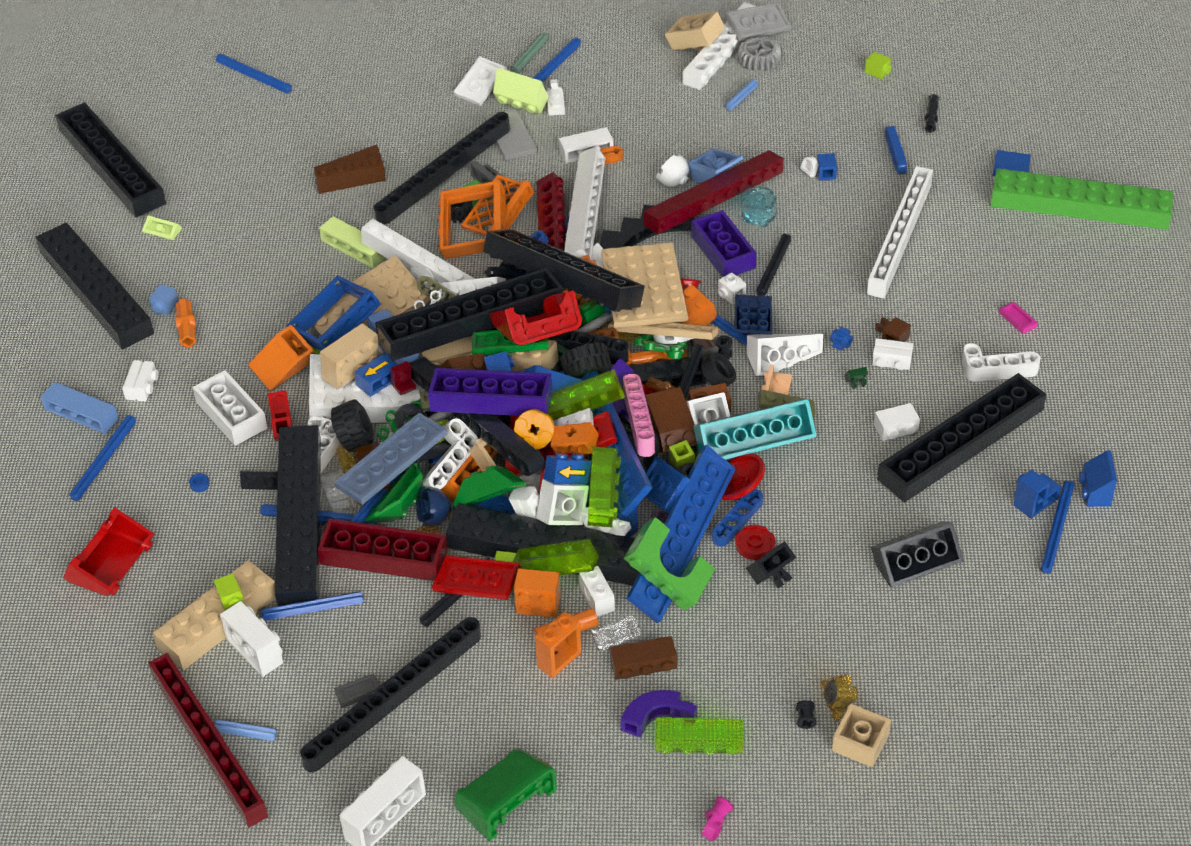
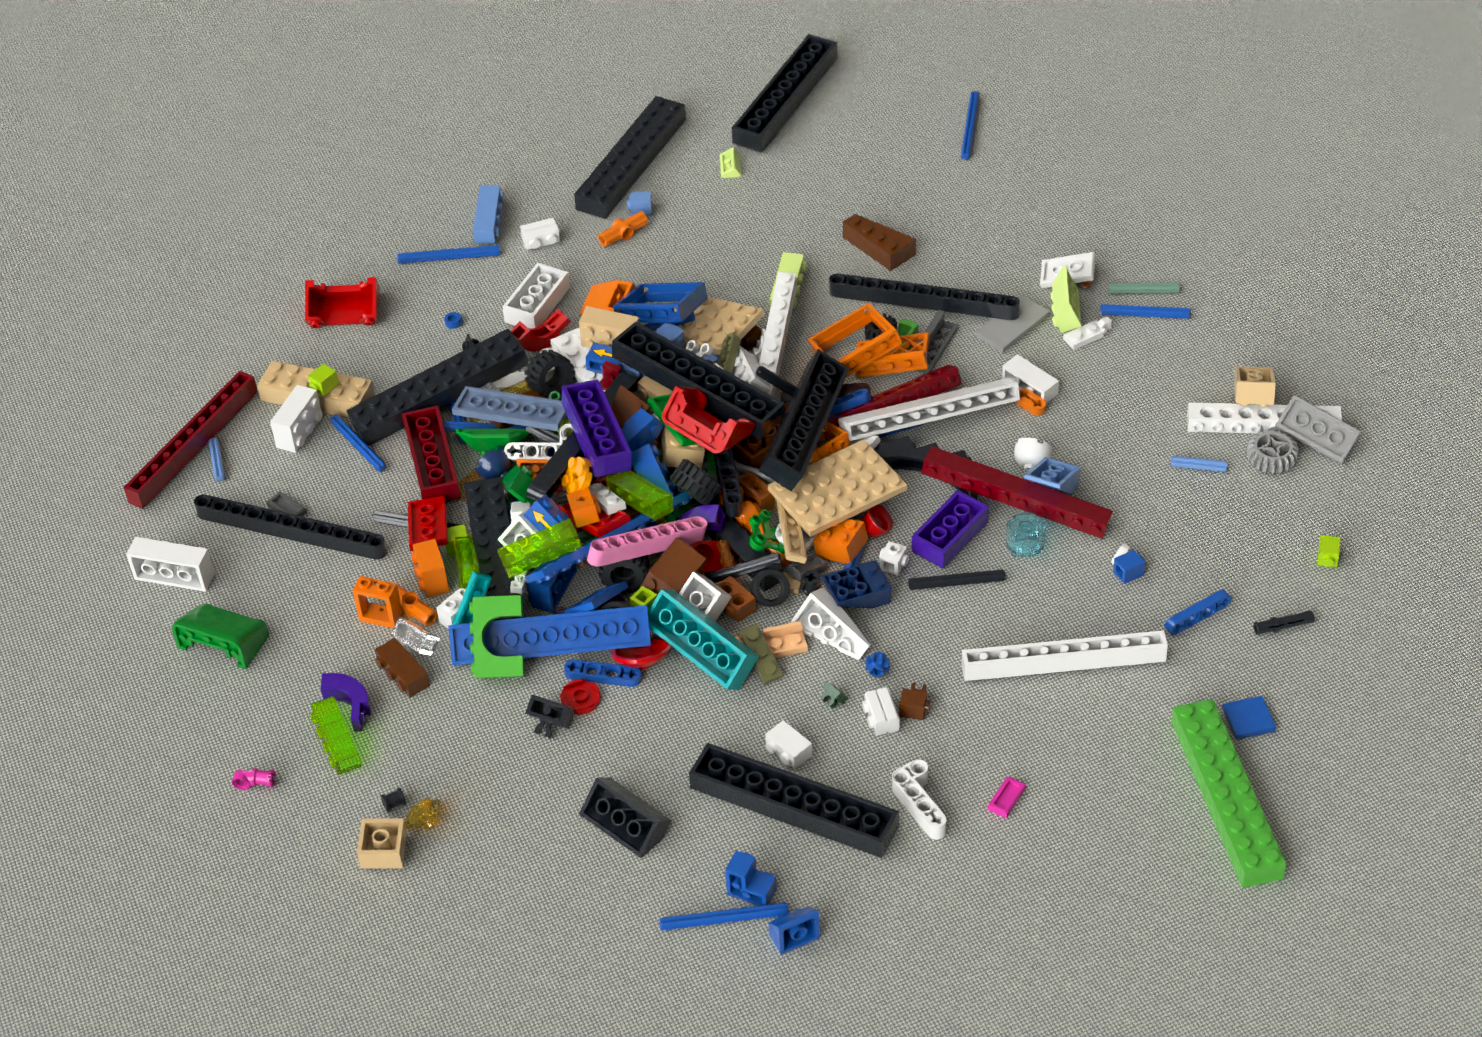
camera: 65 degrees right, 0 degrees up
(609, 571) = (476, 587): none -> teal tile

